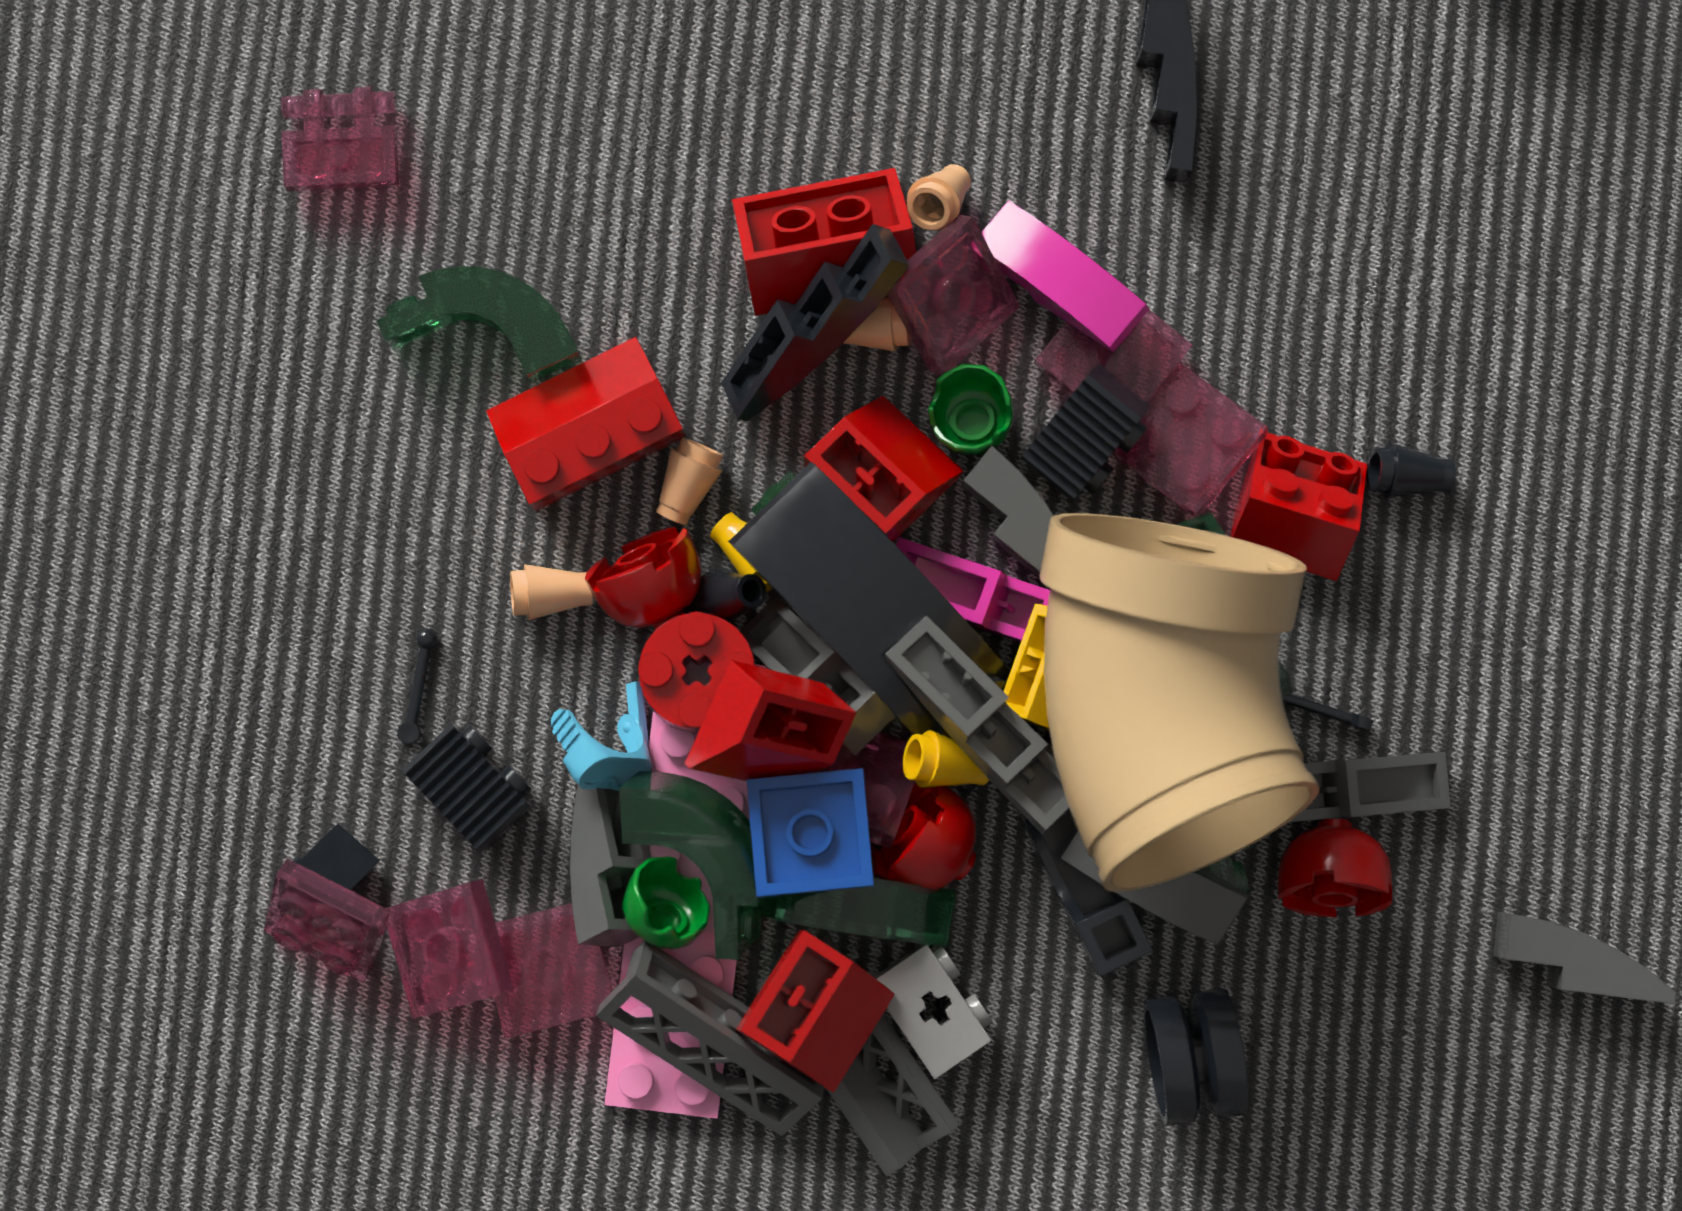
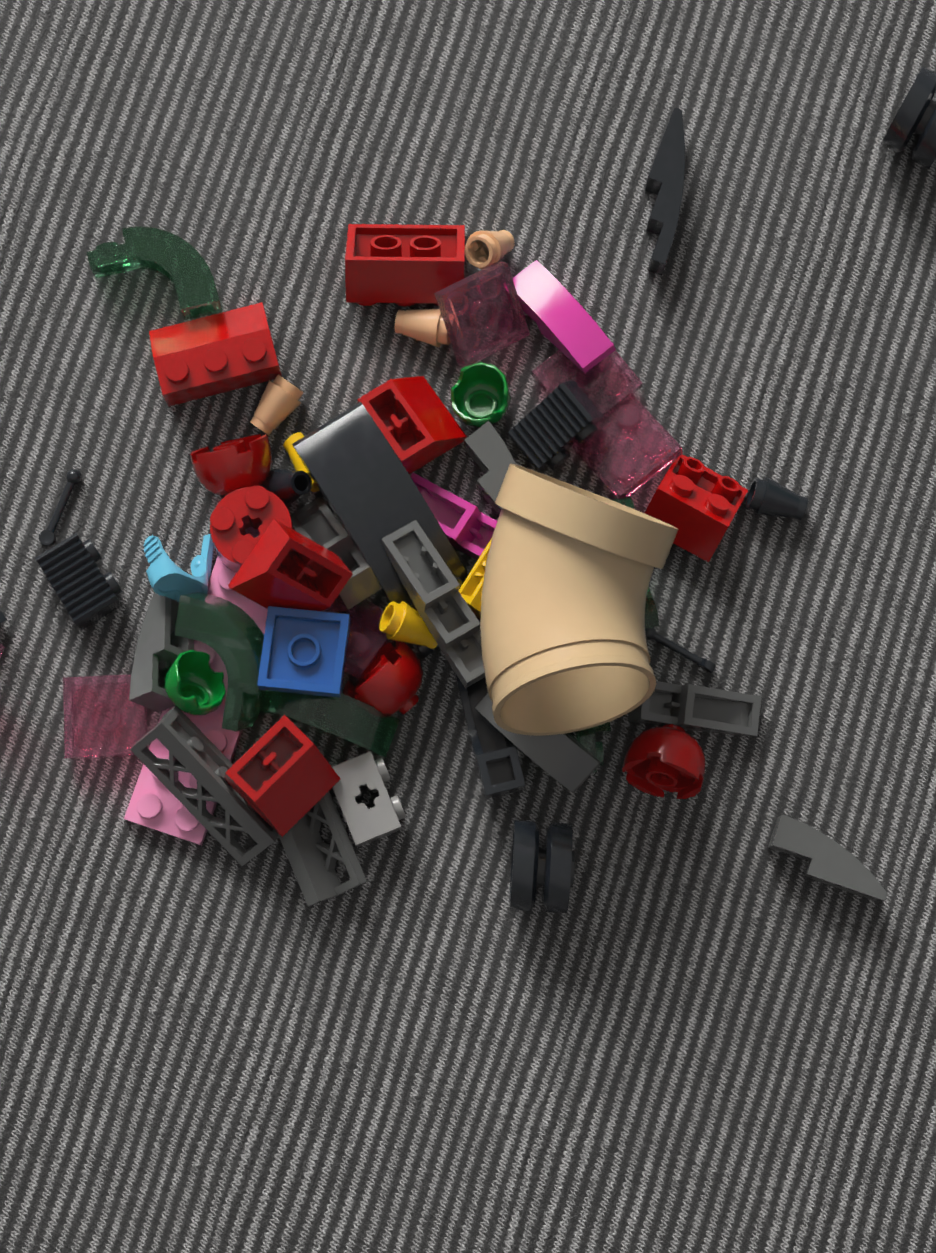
camera: 15 degrees right, 5 degrees down
(339, 156) = (90, 141): clear pink plate -> none
(448, 949) = (39, 687): clear pink plate -> none
(547, 591) = (163, 460): light nougat cone -> none
(804, 334) = (375, 320): black slope -> none

